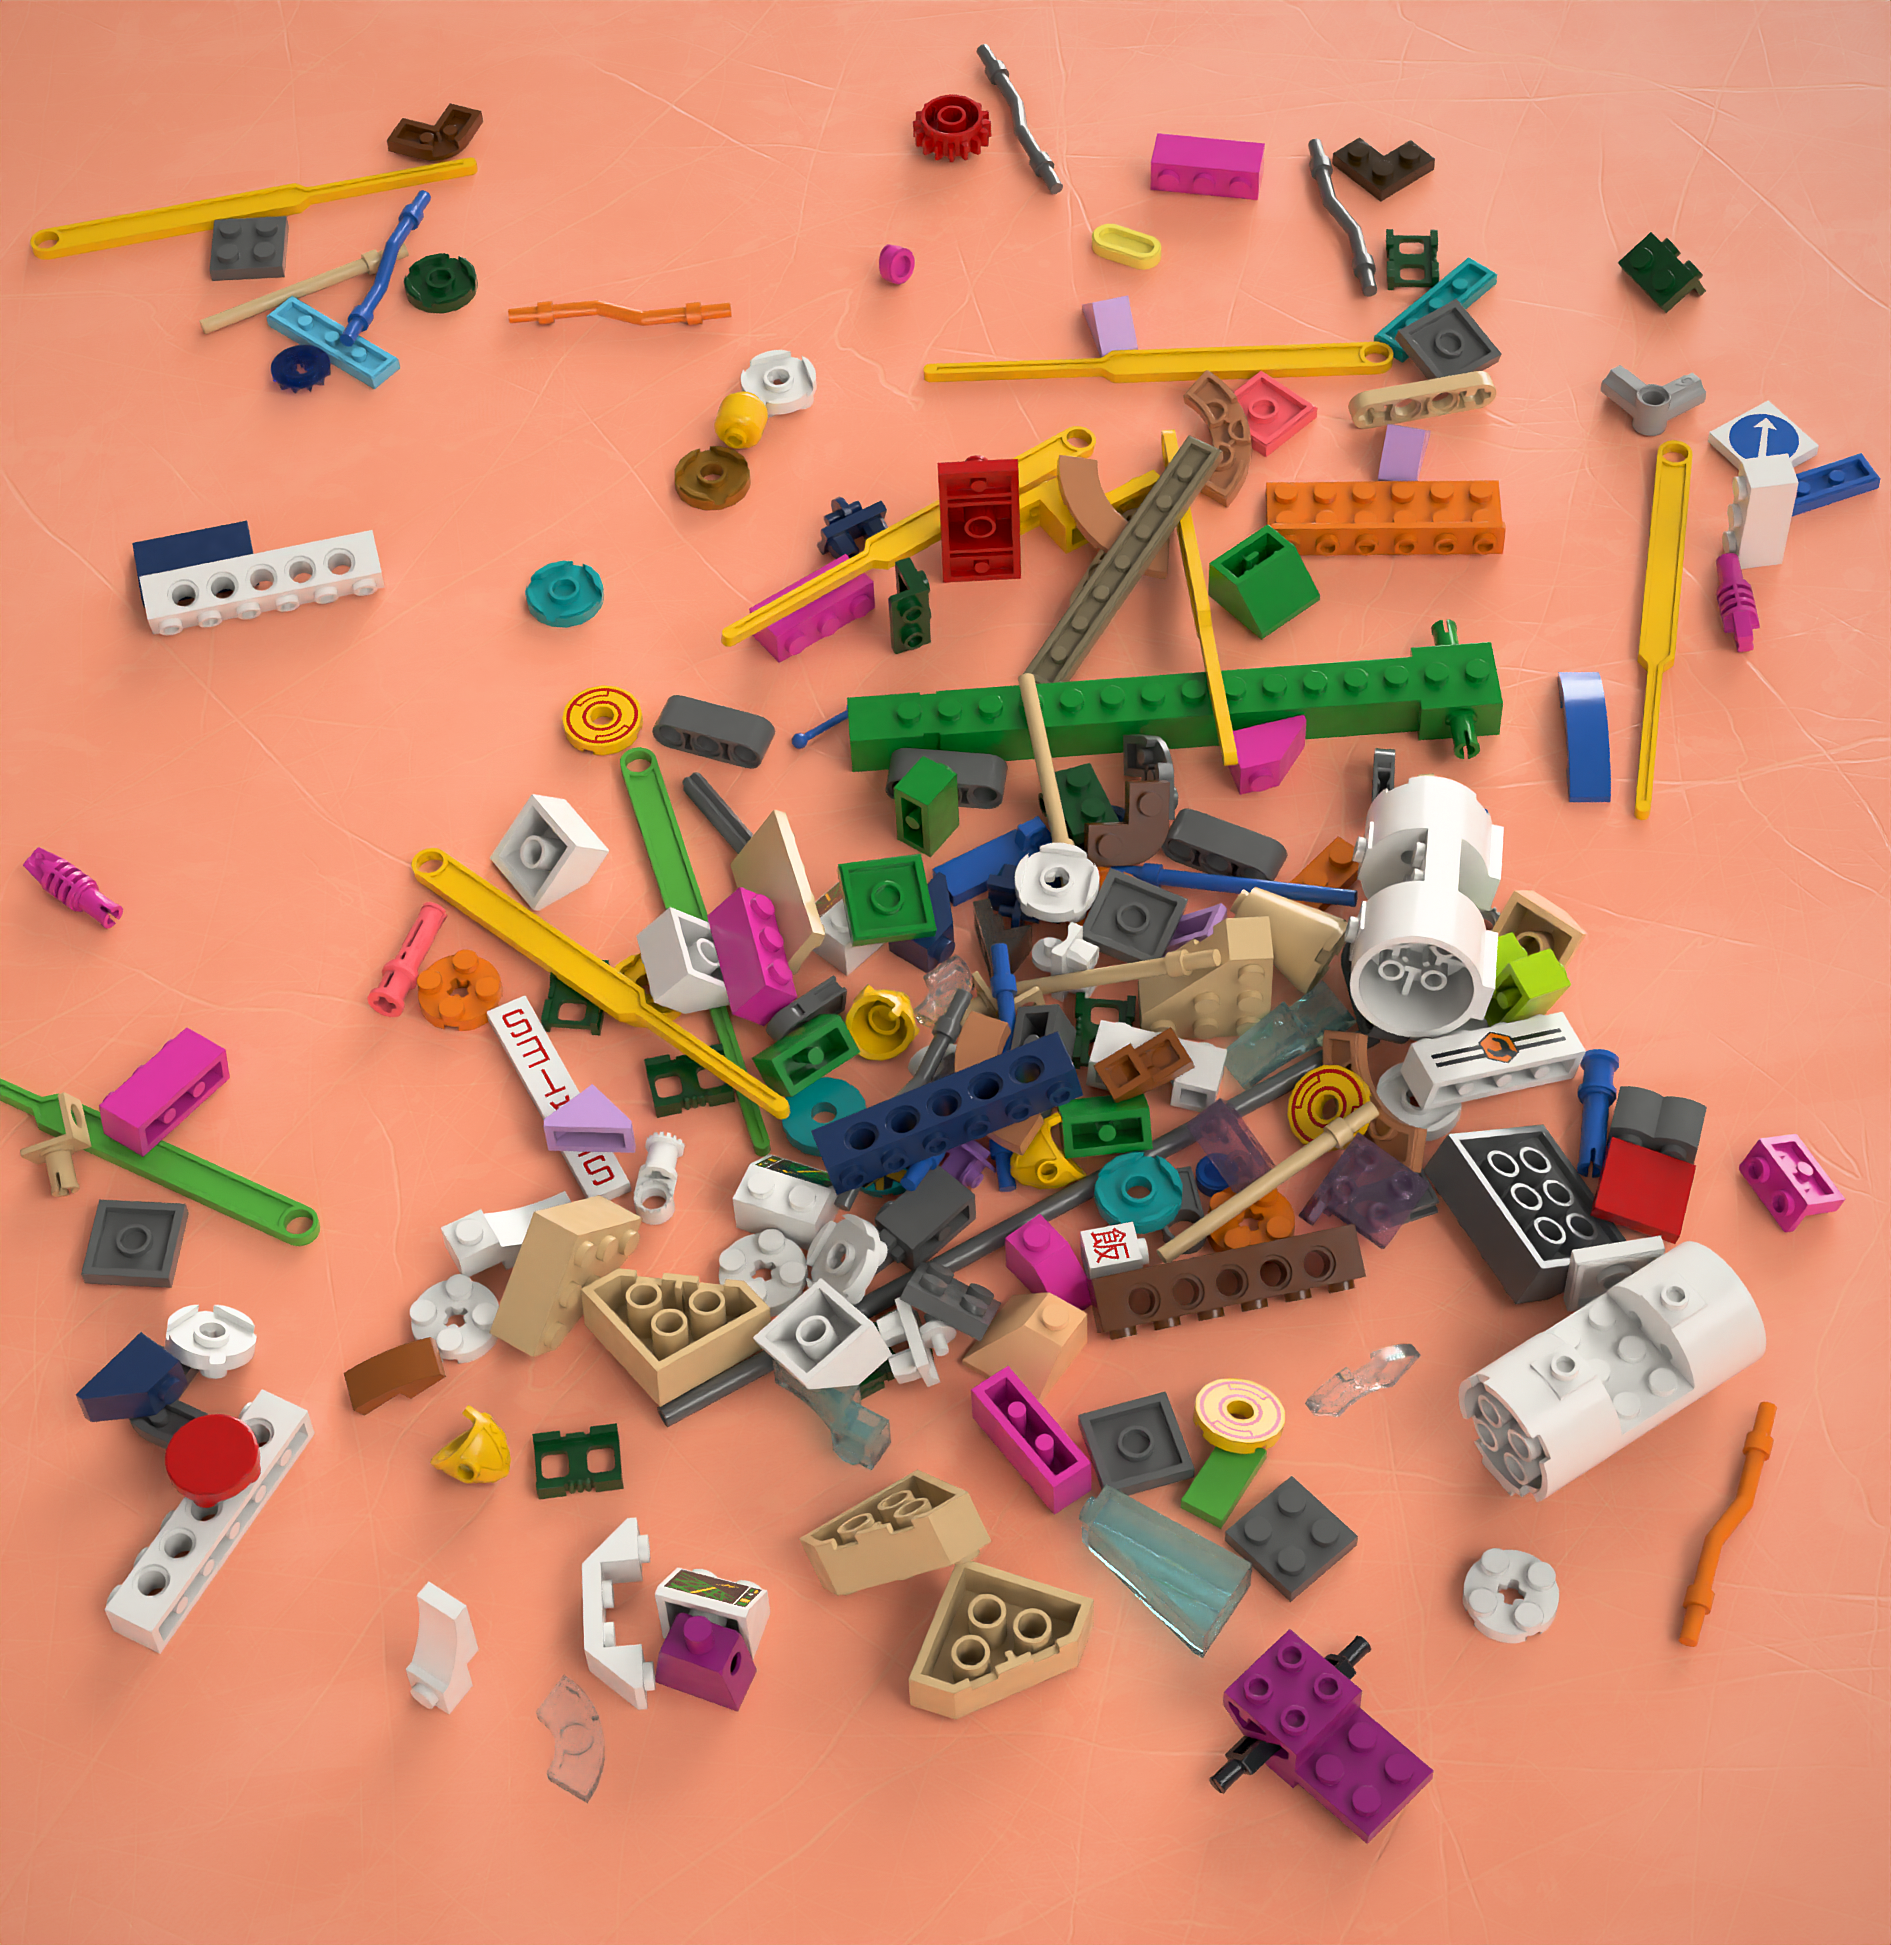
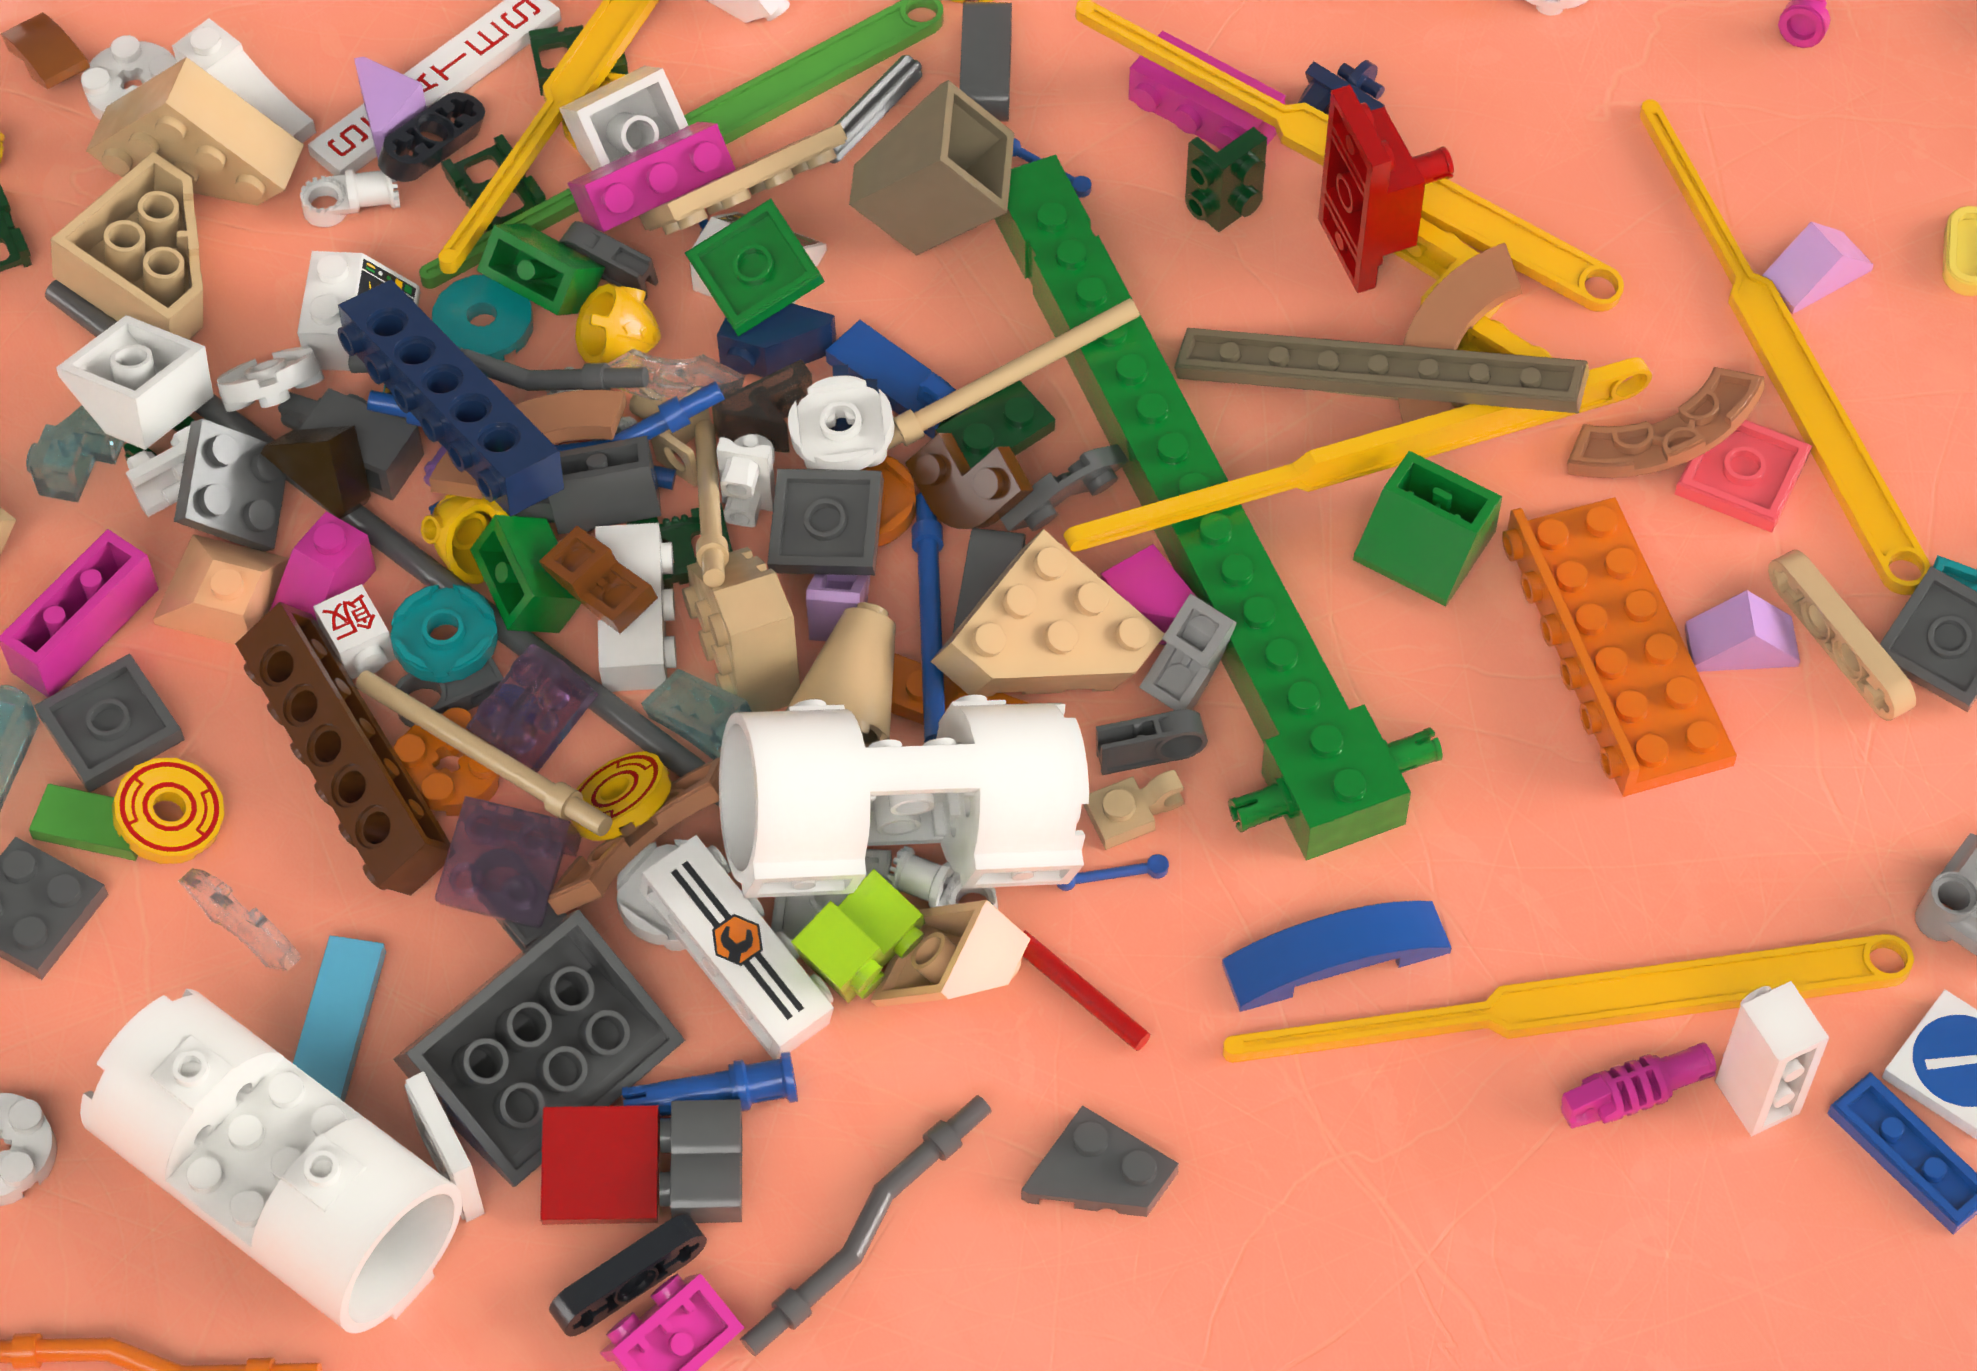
camera: 70 degrees right, 5 degrees up
(649, 1112) = (428, 153): none -> black beam
(771, 1252) = (248, 301): white plate -> none
(845, 768) = (936, 171): none -> dark tan slope
(926, 806) = (928, 277): green brick -> none
(953, 1231) = (325, 465): none -> dark brown slope
(979, 775) = (998, 295): dark grey beam -> none
(1282, 807) = (1047, 630): none -> tan brick
(1324, 739) = (1190, 655): none -> light grey slope
(1448, 1335) = (339, 1012): none -> medium azure tile
(1583, 876) = (1085, 994): none -> red bar
(1716, 906) = (1101, 1169): none -> dark grey wing
(1736, 1194) = (627, 1275): none -> black beam
(1781, 1102) = (794, 1305): none -> dark grey bar

